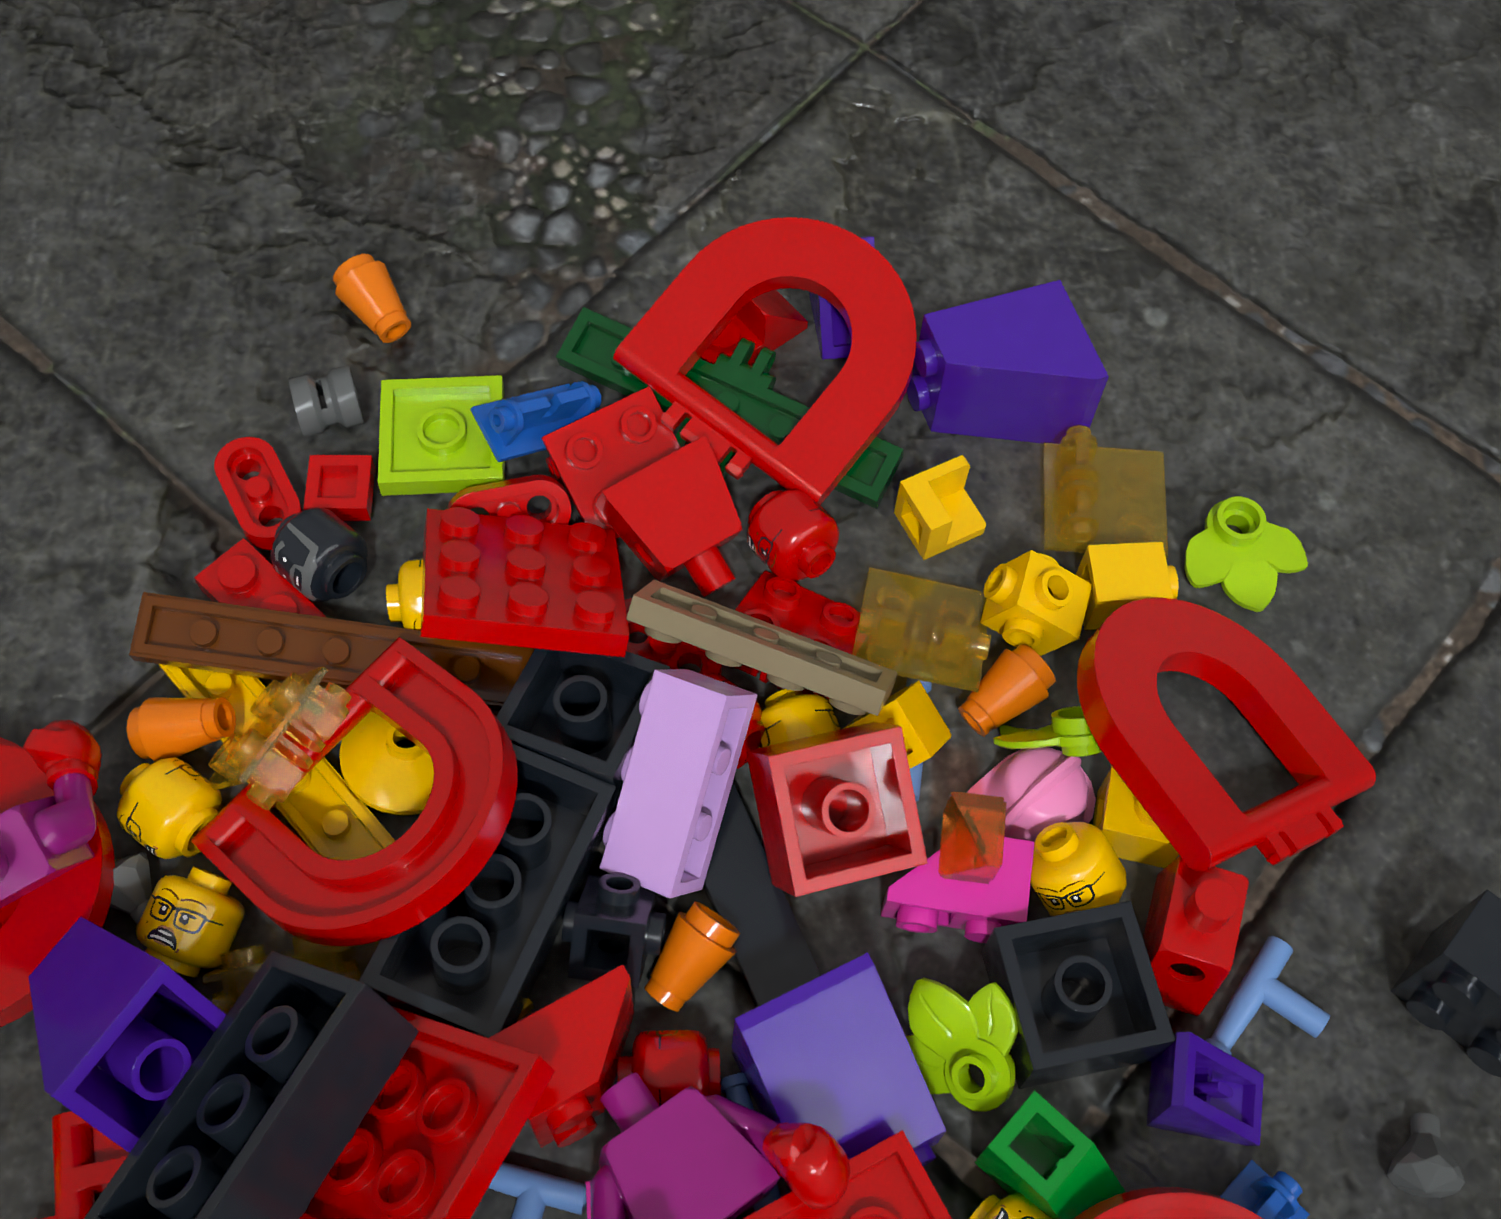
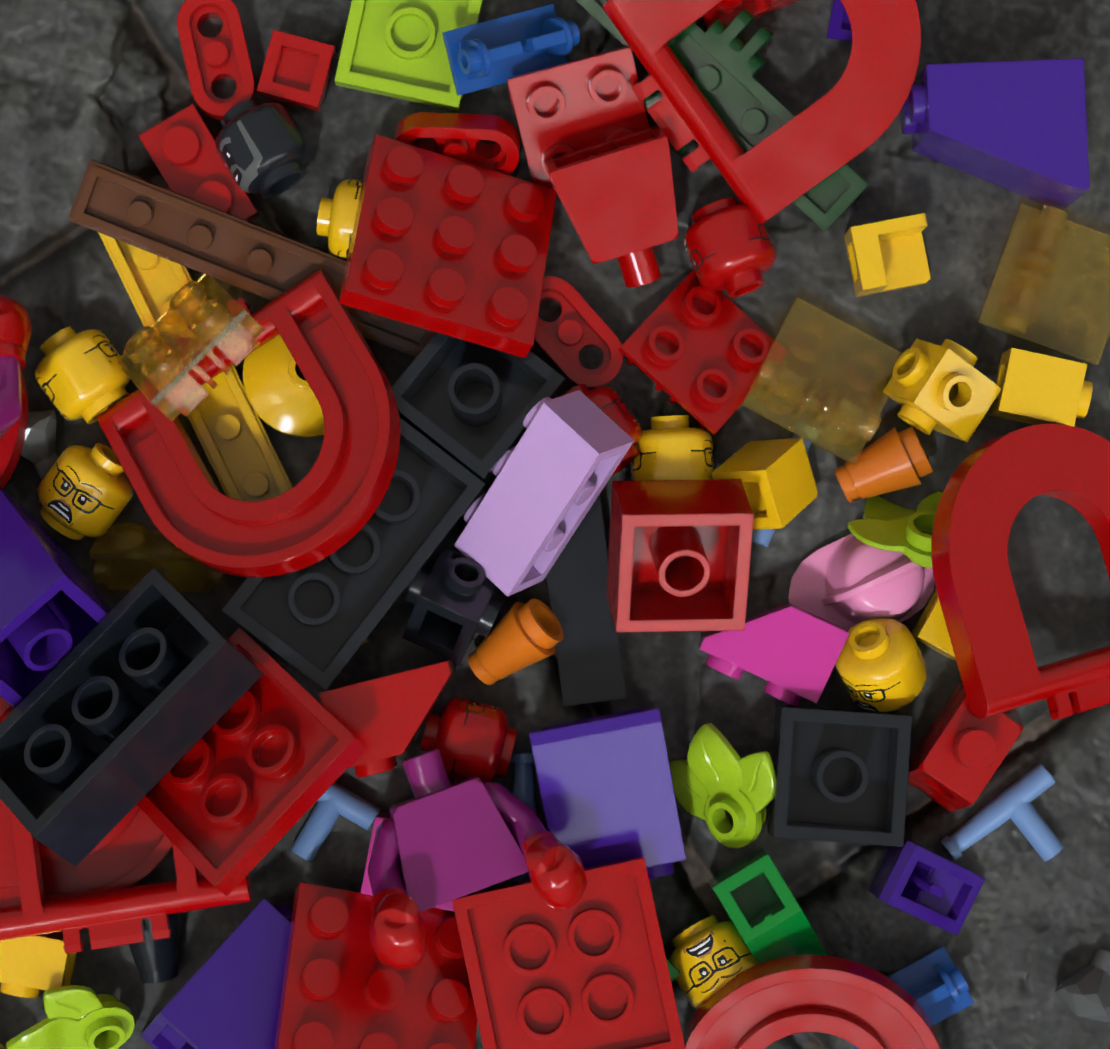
camera: 15 degrees right, 25 degrees up
(178, 725) = (102, 297): orange cone -> none
(740, 640) = (656, 381): dark tan plate -> none
(972, 837) = (789, 623): clear orange slope -> none

